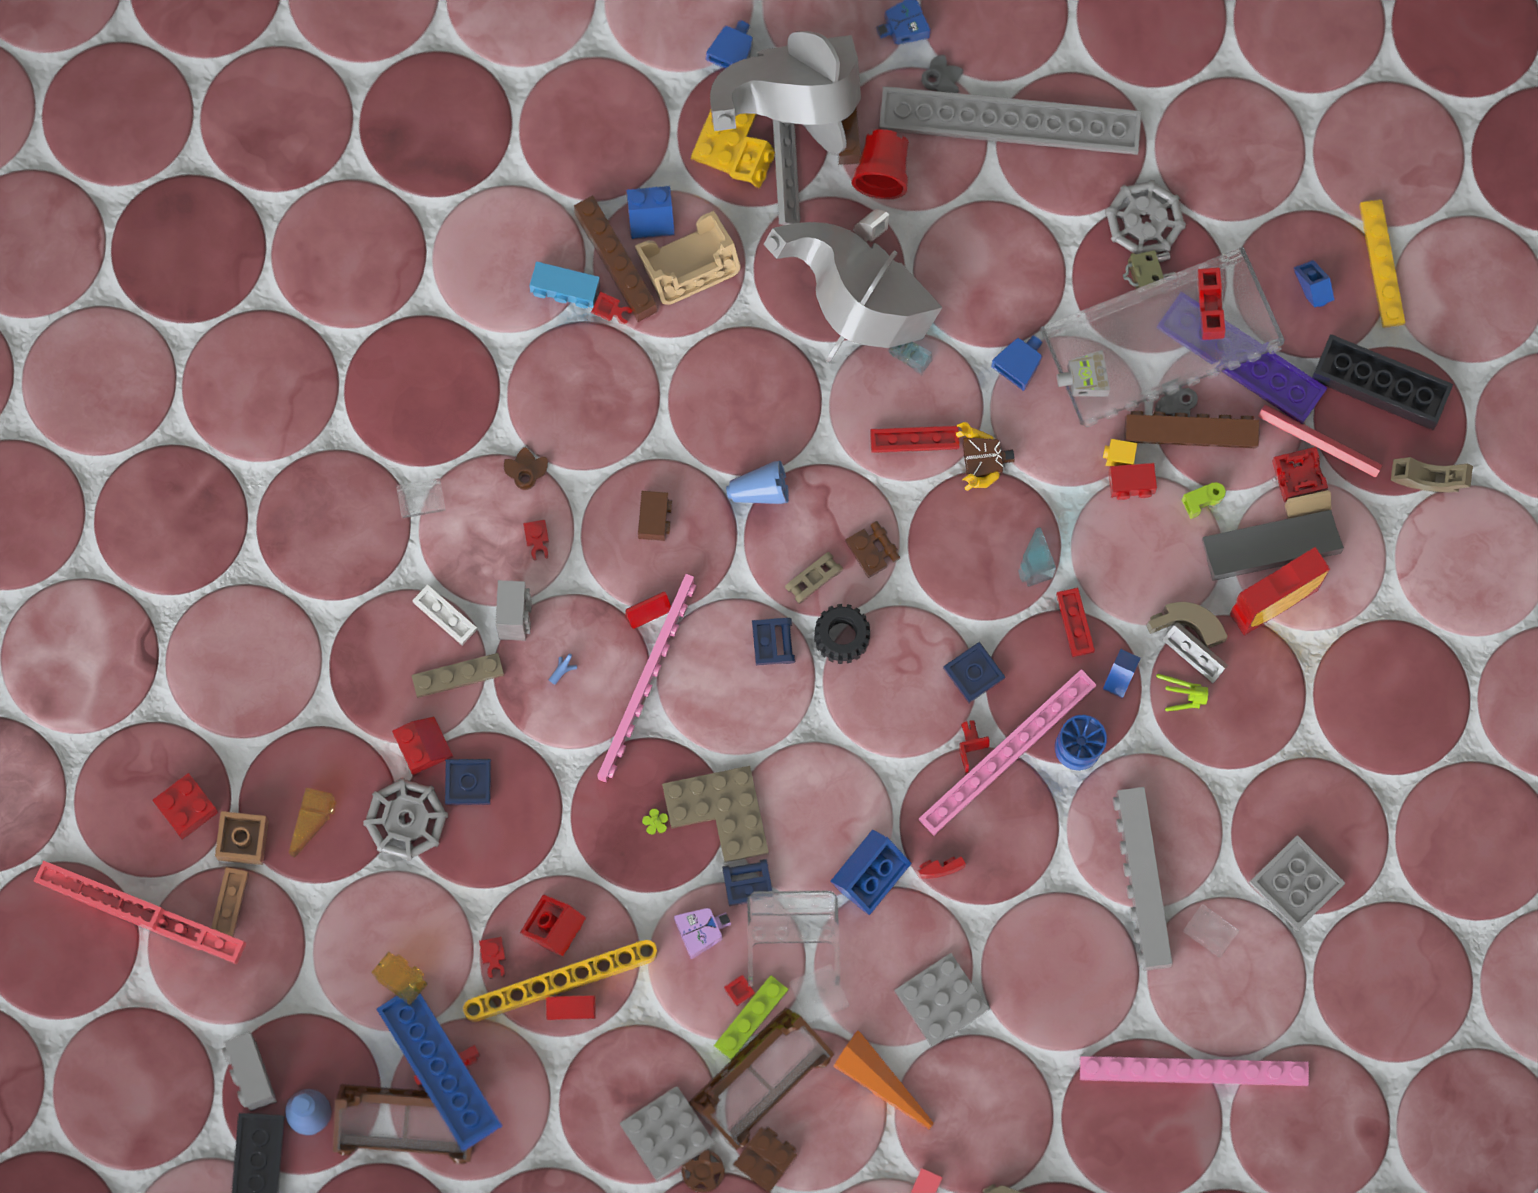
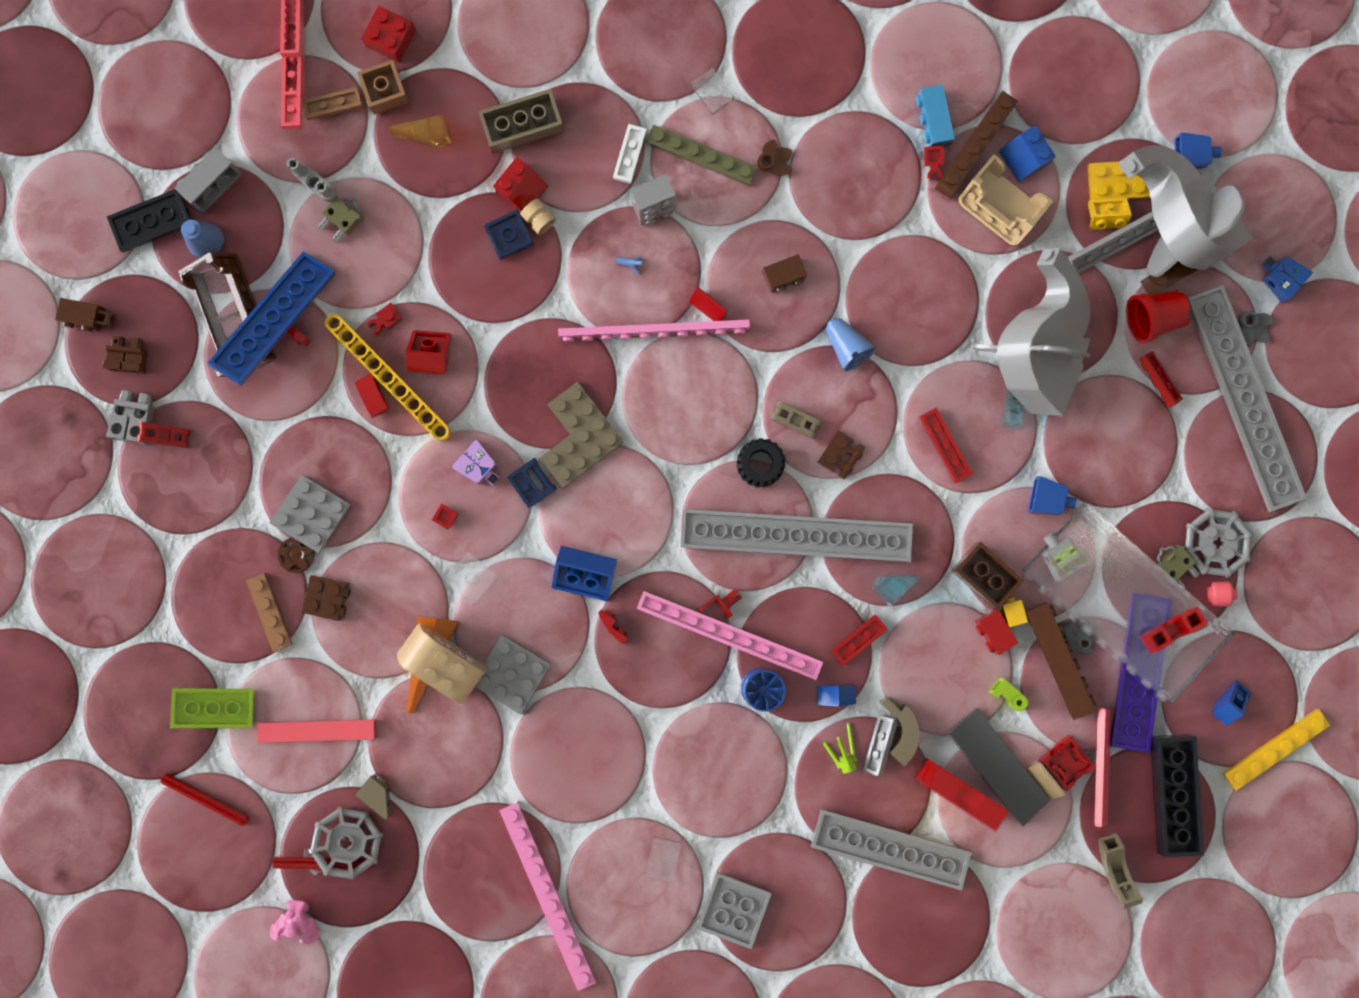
camera: 65 degrees right, 10 degrees up
(297, 965) = (311, 178): none -> light grey connector
(353, 709) = (521, 121): none -> dark tan brick
(357, 946) = (342, 216): none -> olive piece
(399, 977) = (332, 256): clear yellow brick -> none
(413, 829) = (467, 208): light grey plate -> none
(457, 675) = (588, 187): dark tan plate -> none
(465, 740) = (536, 214): none -> tan wheel
(482, 542) = (701, 155): none -> olive plate
(536, 535) = (726, 193): red plate -> none
(655, 822) = (546, 390): lime plant -> none
(751, 1017) = (429, 535): lime plate -> none
(760, 1077) = (384, 563): windscreen -> none
(765, 641) = (726, 407): dark blue plate -> none
(792, 919) = (517, 530): clear windscreen -> none
(872, 225) = (1103, 329): white slope -> none
(895, 1059) = (440, 663): none -> tan brick
(935, 635) = (796, 535): none -> light grey plate
(950, 193) = (1160, 379): none -> red plate
(974, 672) = (780, 579): dark blue plate -> none
(982, 457) = (956, 505): torso -> none
(1070, 461) = (987, 575): none -> reddish brown brick
(1143, 879) = (678, 788): light grey brick -> none
(1199, 240) = (1221, 594): none -> coral head
(1307, 693) = (891, 849): none -> light grey plate

